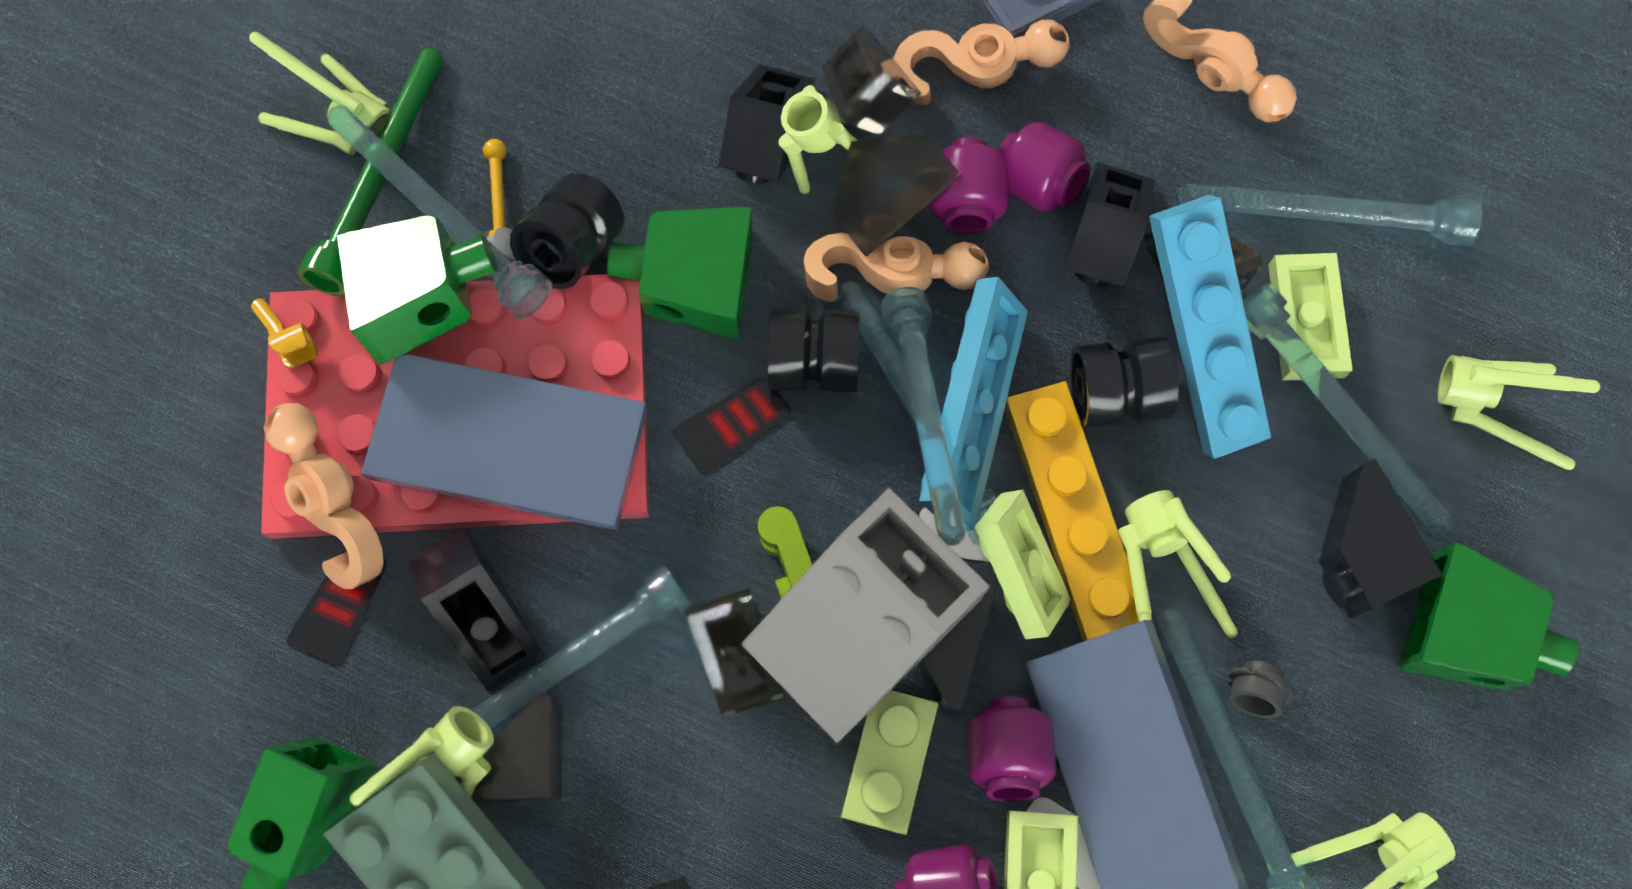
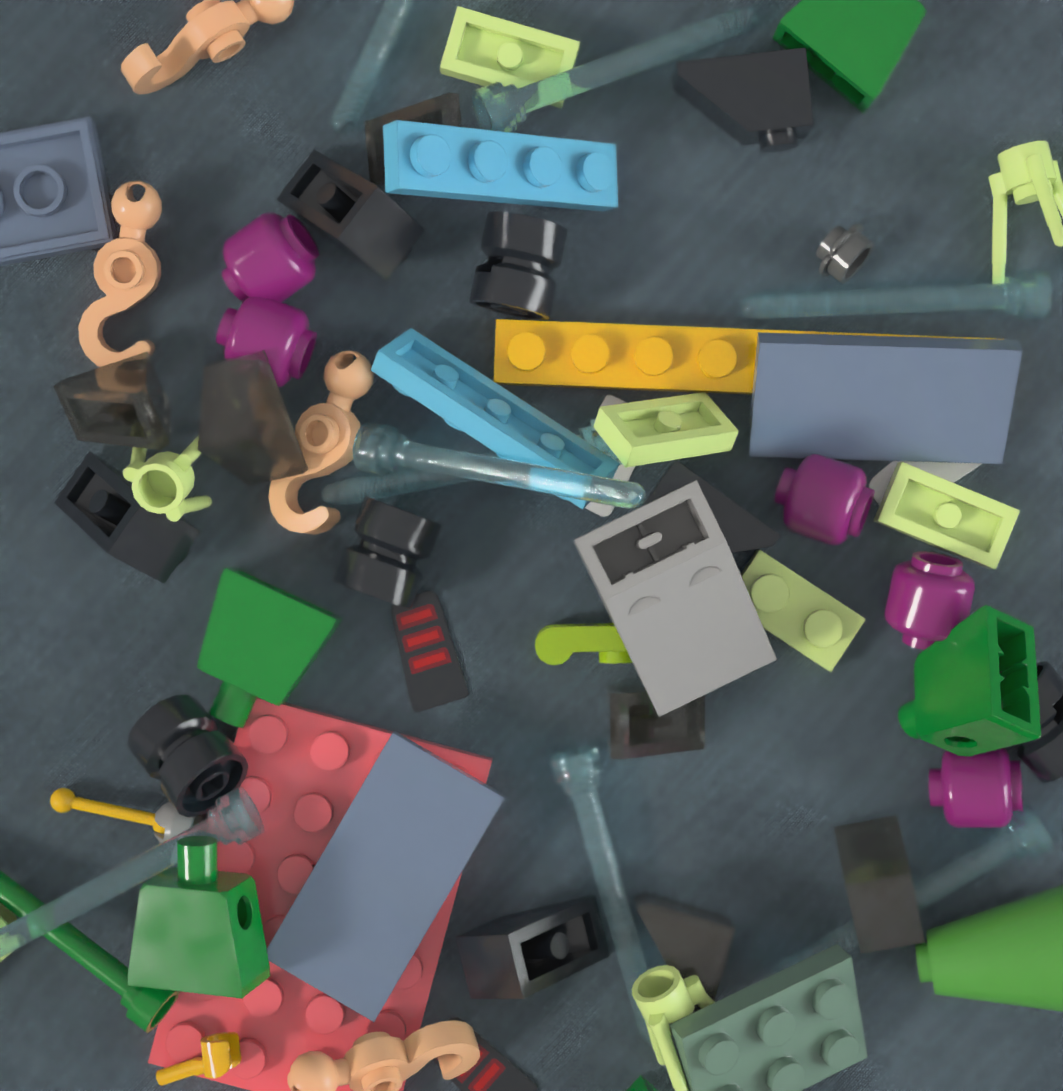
camera: 70 degrees left, 15 degrees up
(1164, 527) = (670, 283): yellowish green plant -> none

